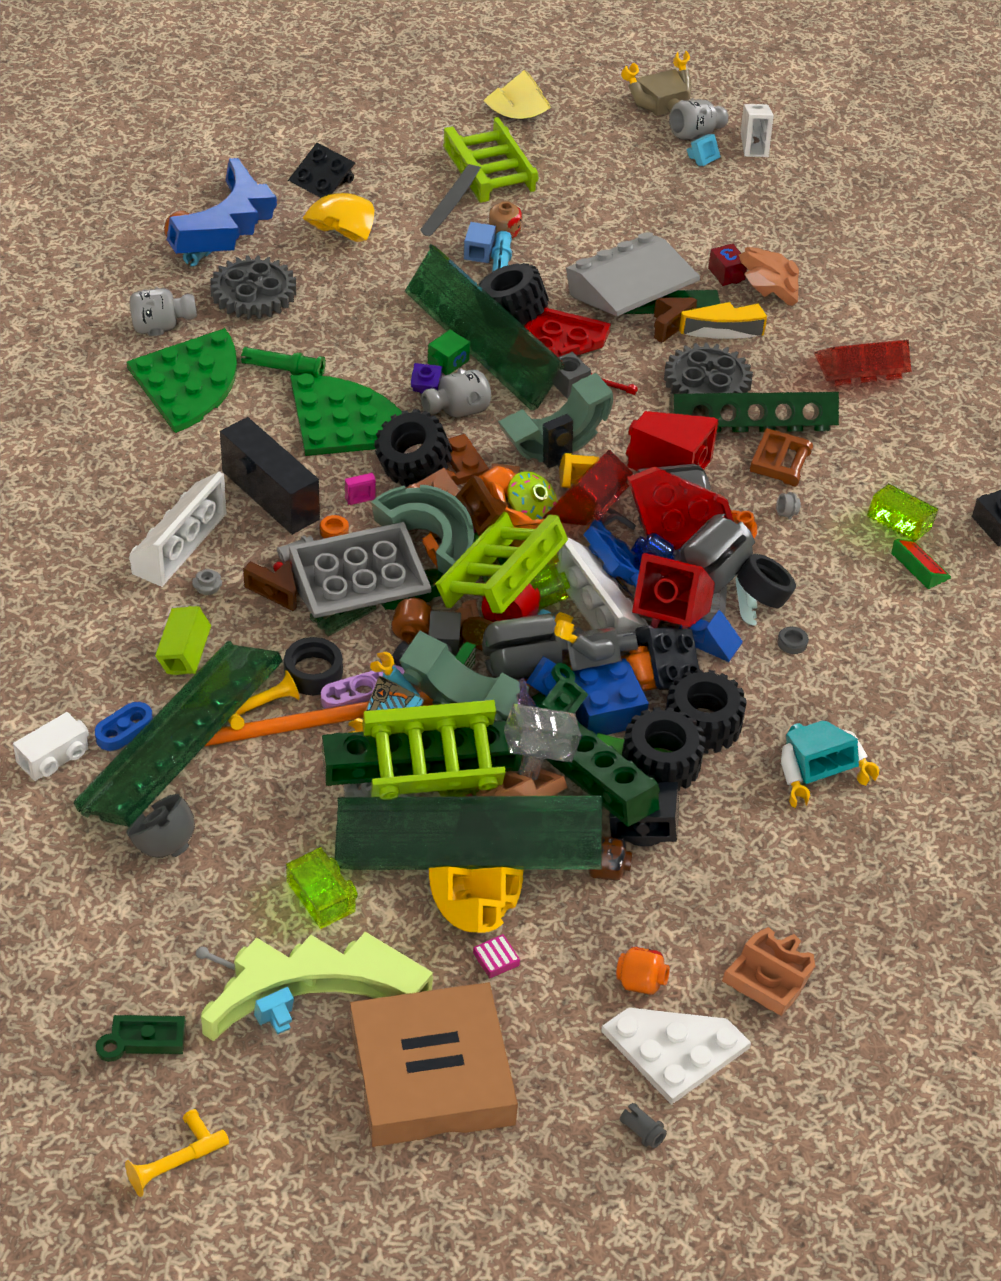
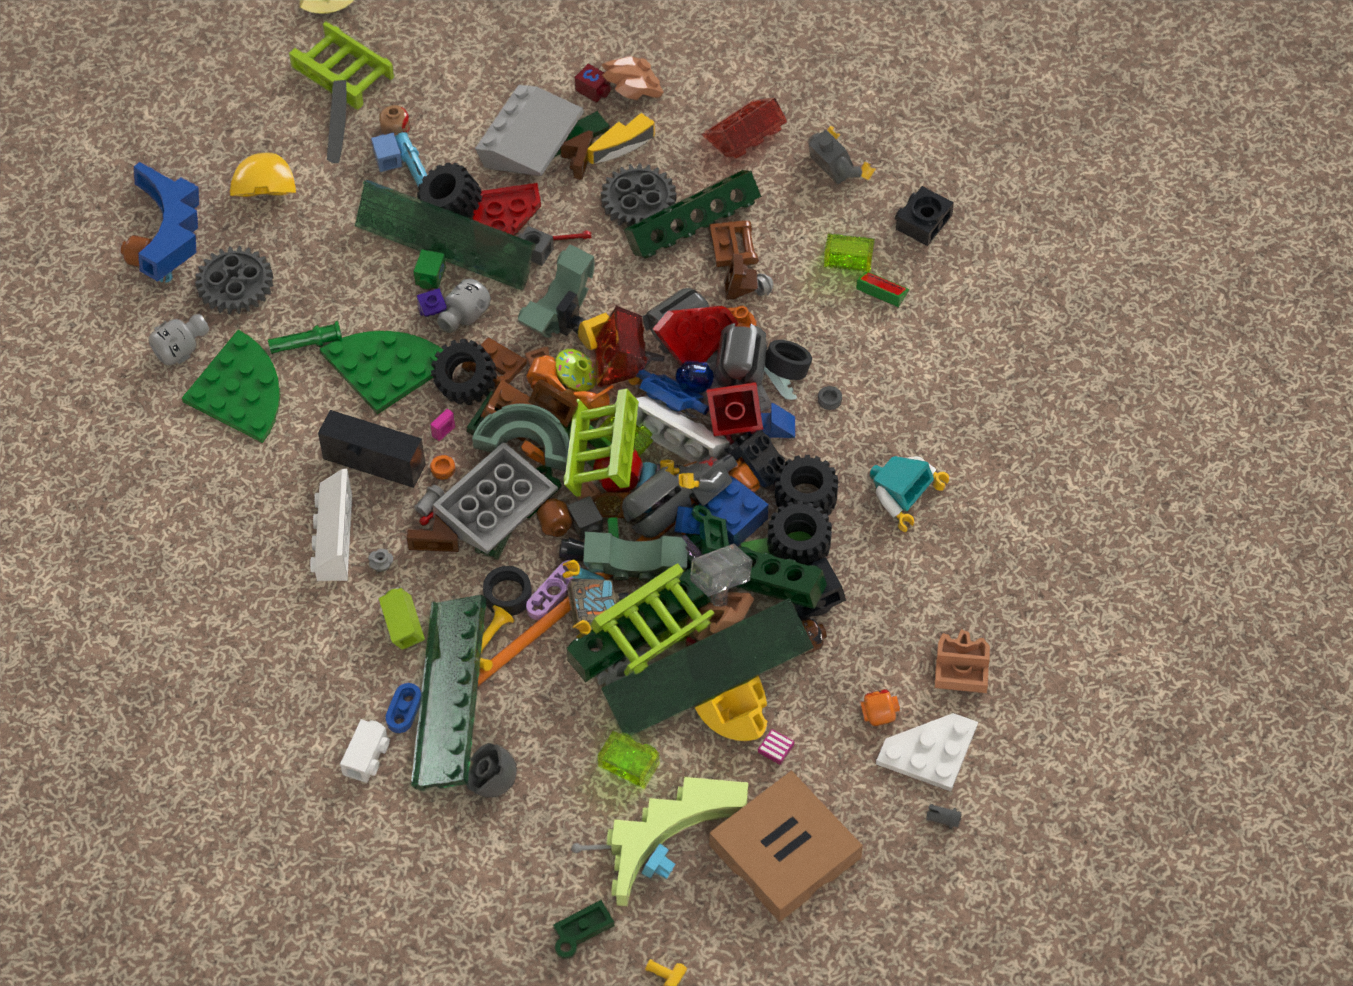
camera: 25 degrees left, 10 degrees up
(322, 171) = (212, 140): black hinge -> none
(671, 440) = (651, 276): red slope -> none
(763, 488) = (739, 279): none -> reddish brown slope
(939, 421) = (834, 157): none -> dark grey torso

